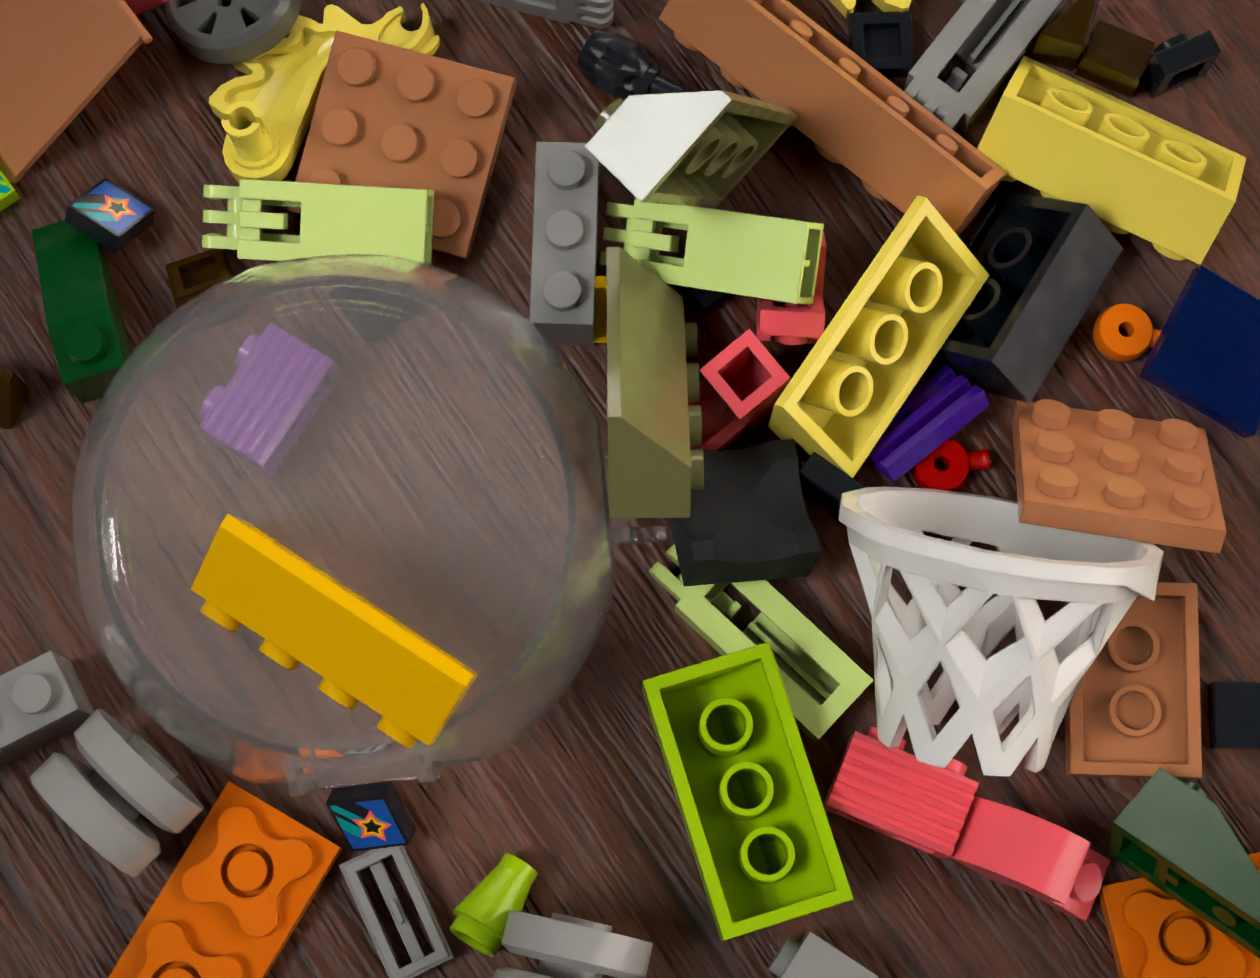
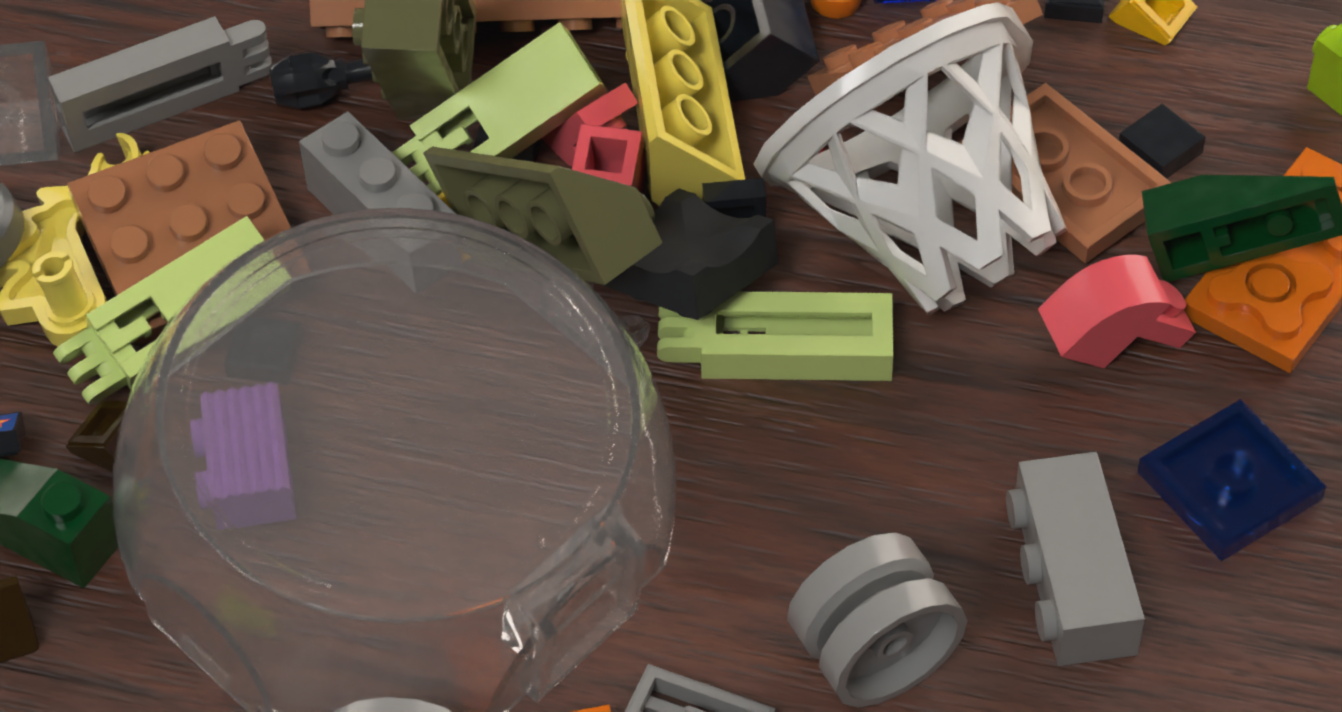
camera: 40 degrees left, 25 degrees down
(331, 631) = (482, 445): yellow slope -> none
(371, 816) = (613, 656): tile -> none
(485, 909) = (771, 651): lime cone -> none
(745, 791) = (876, 422): lime slope -> none
(901, 795) = (987, 350): coral brick -> none
(926, 421) = (759, 116): dark purple tile -> none

